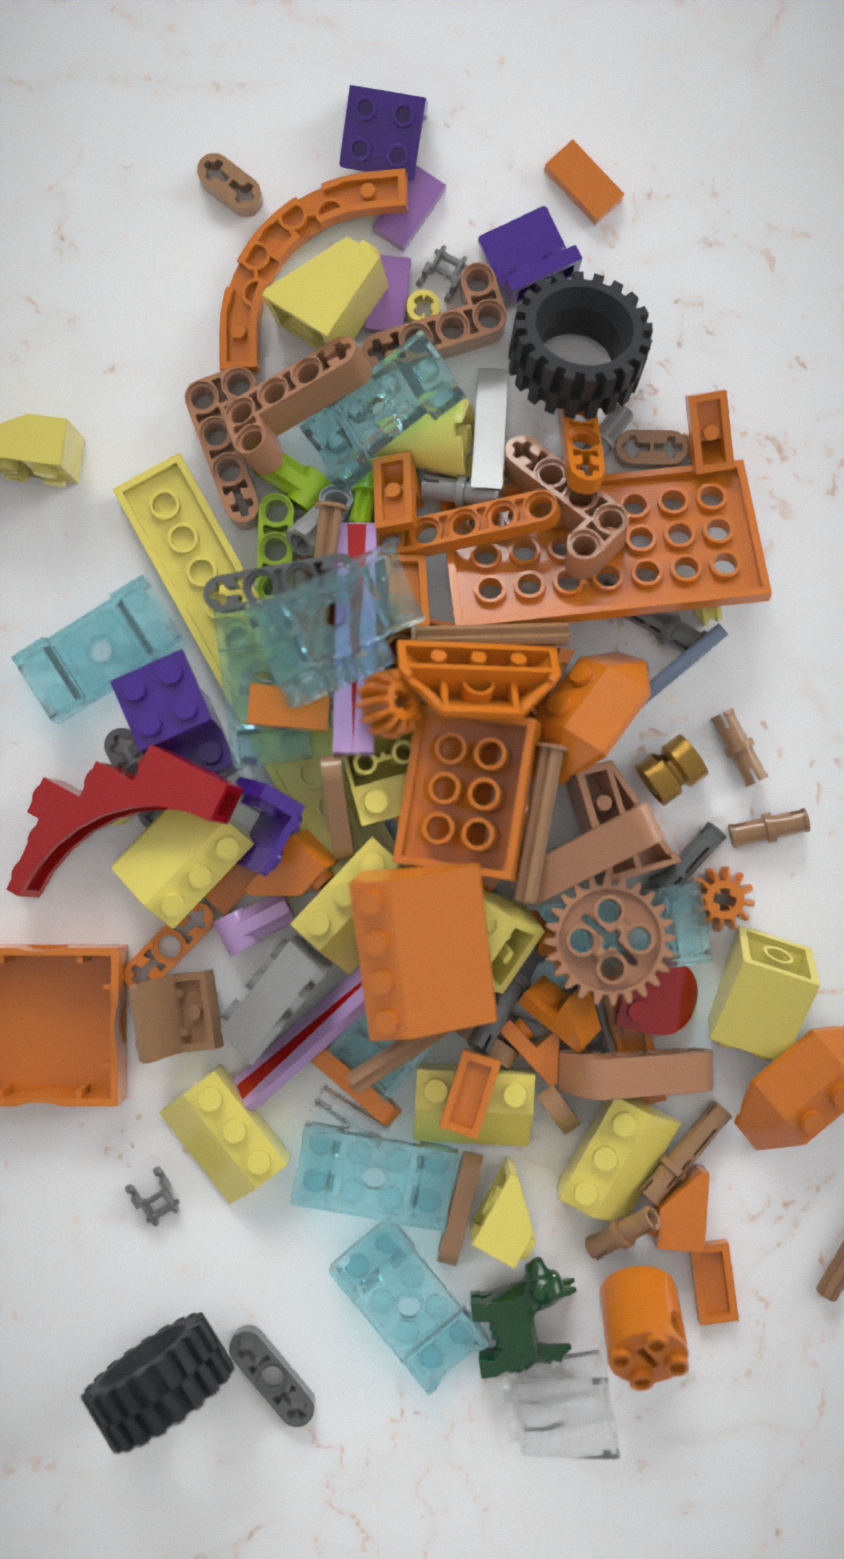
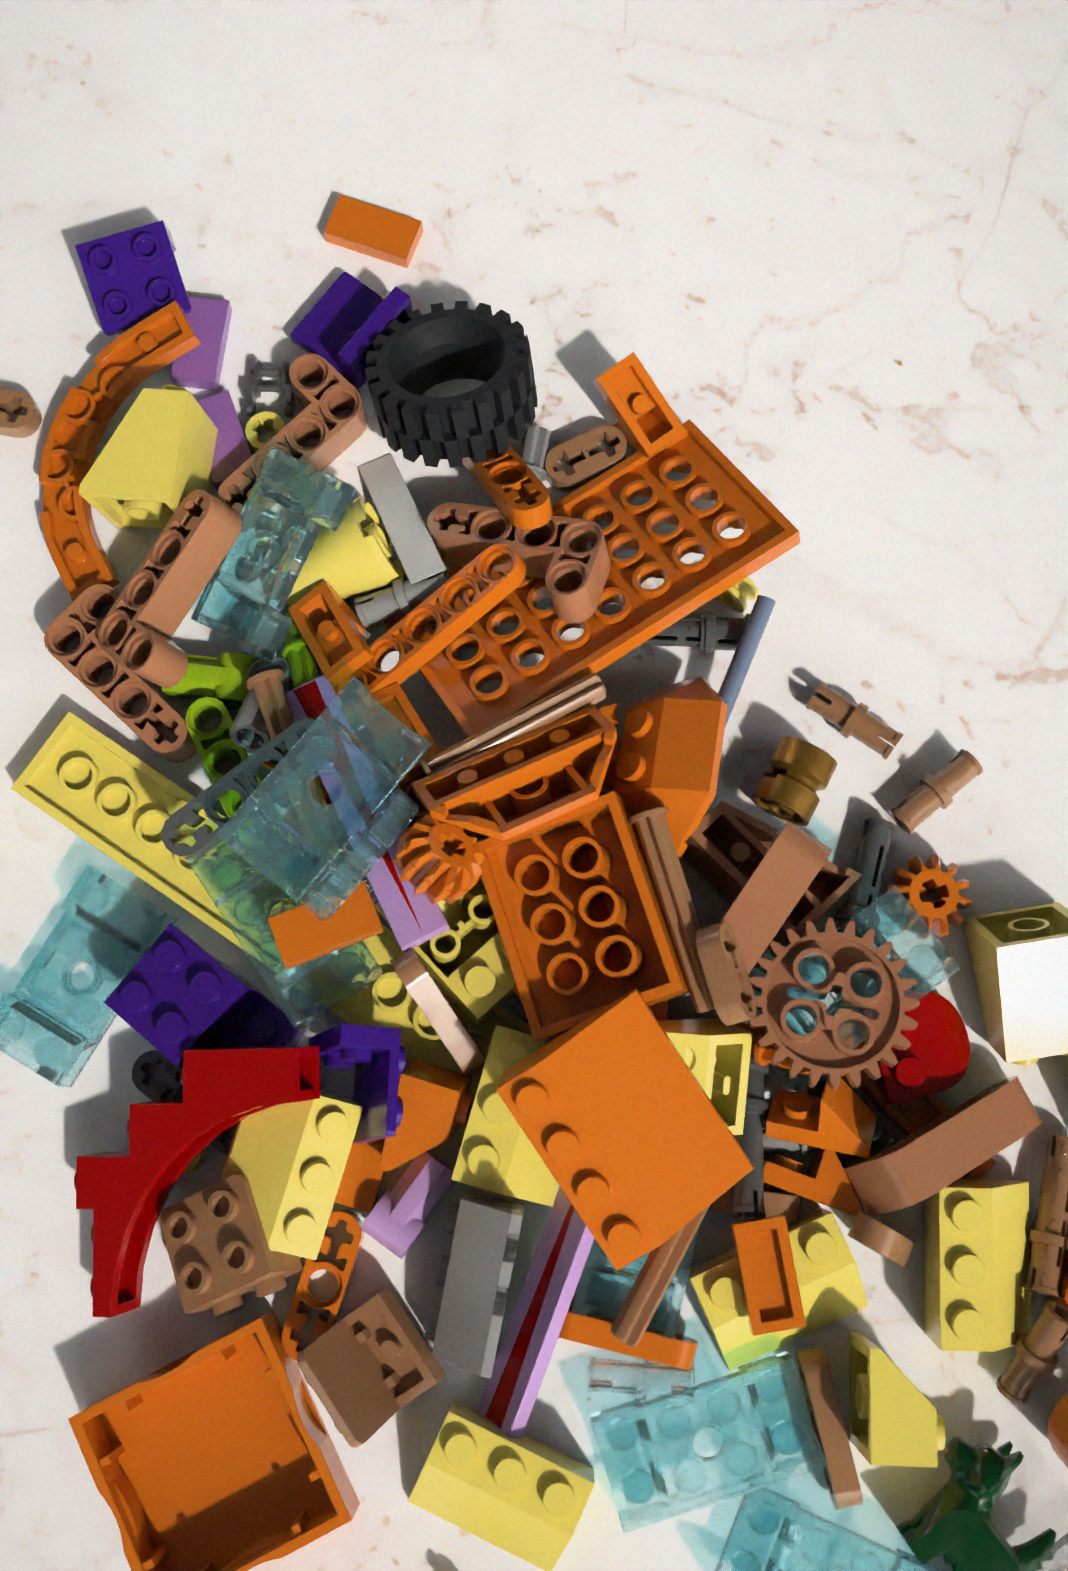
camera: 20 degrees left, 10 degrees down
(113, 888) = (222, 1249): none -> medium nougat bracket
(546, 884) = (726, 974): none -> medium nougat beam

